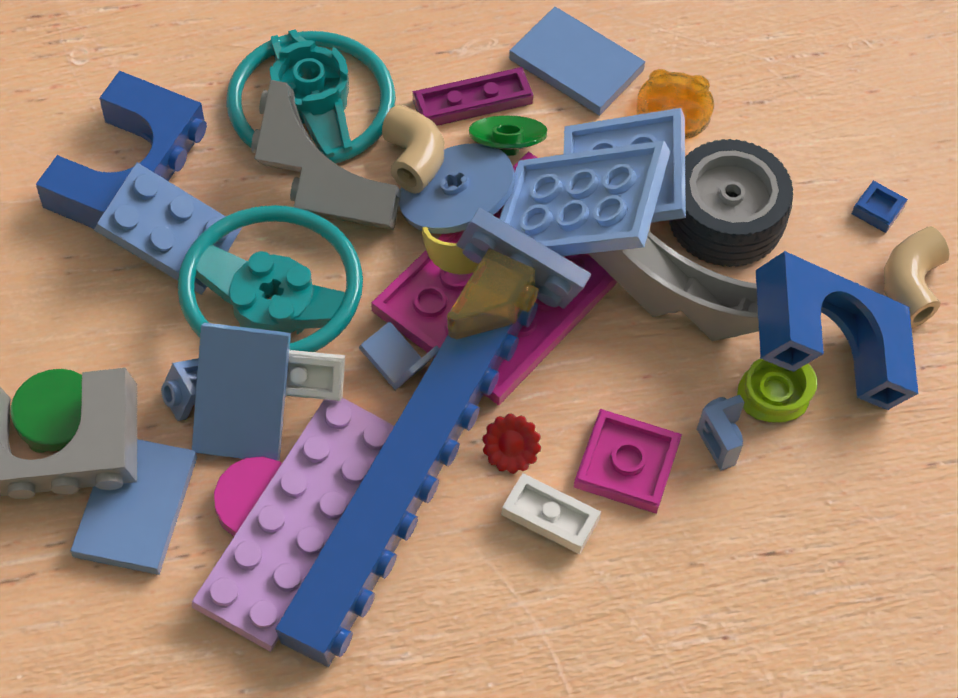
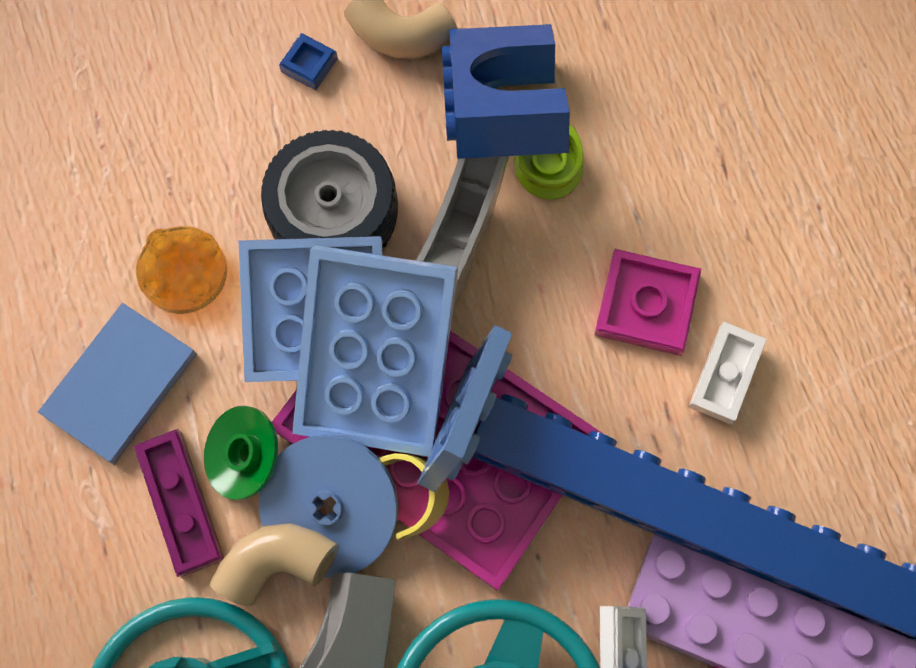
camera: 90 degrees left, 15 degrees up
(394, 355) = (565, 550): medium blue bracket -> none
(493, 296) = (527, 435): clear yellow slope -> none
(511, 443) = (652, 418): red piece -> none
(720, 432) = (614, 210): medium blue bracket -> none

